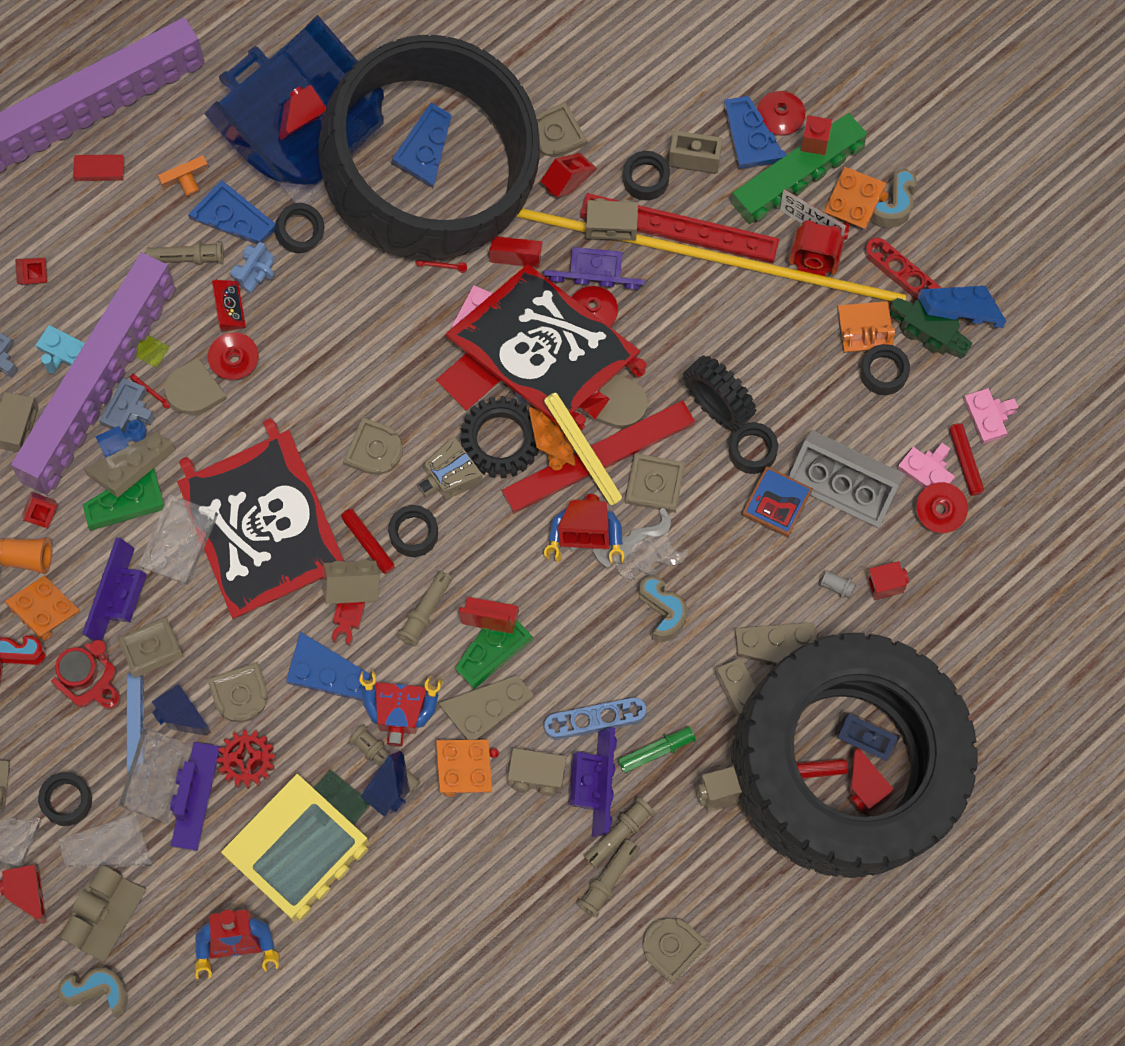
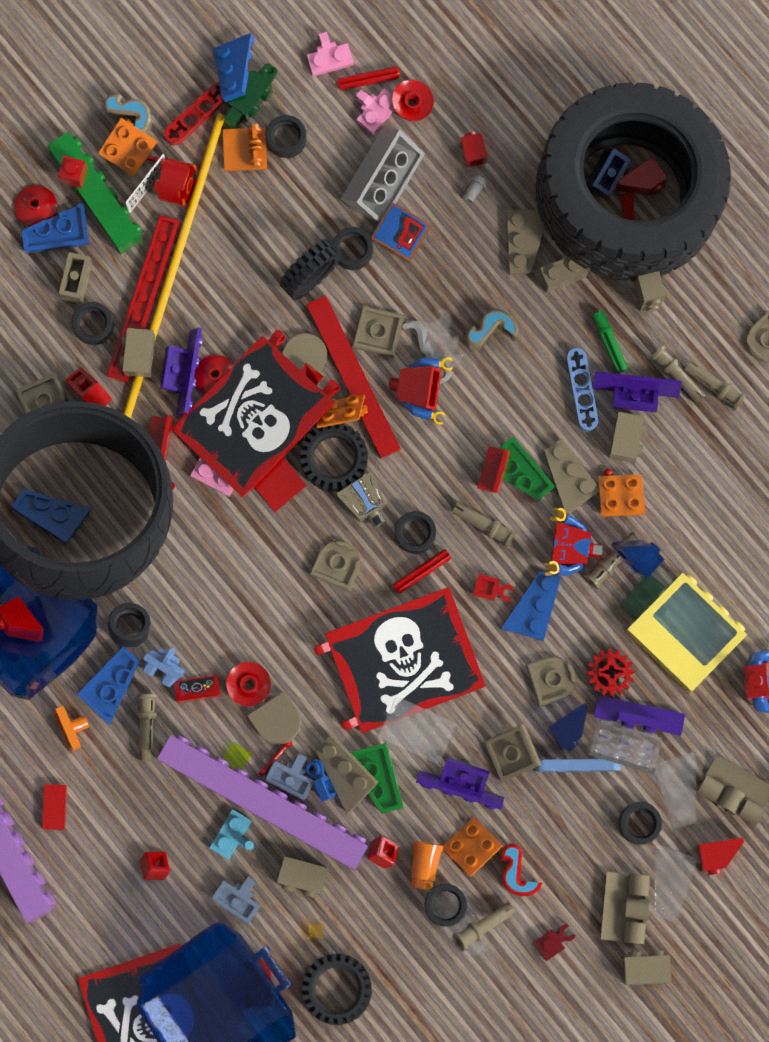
camera: 90 degrees left, 10 degrees up
(79, 670) = (530, 814): red piece -> none
(351, 581) = (463, 583): dark tan brick -> none
(583, 448) = (355, 384): light yellow axle -> none

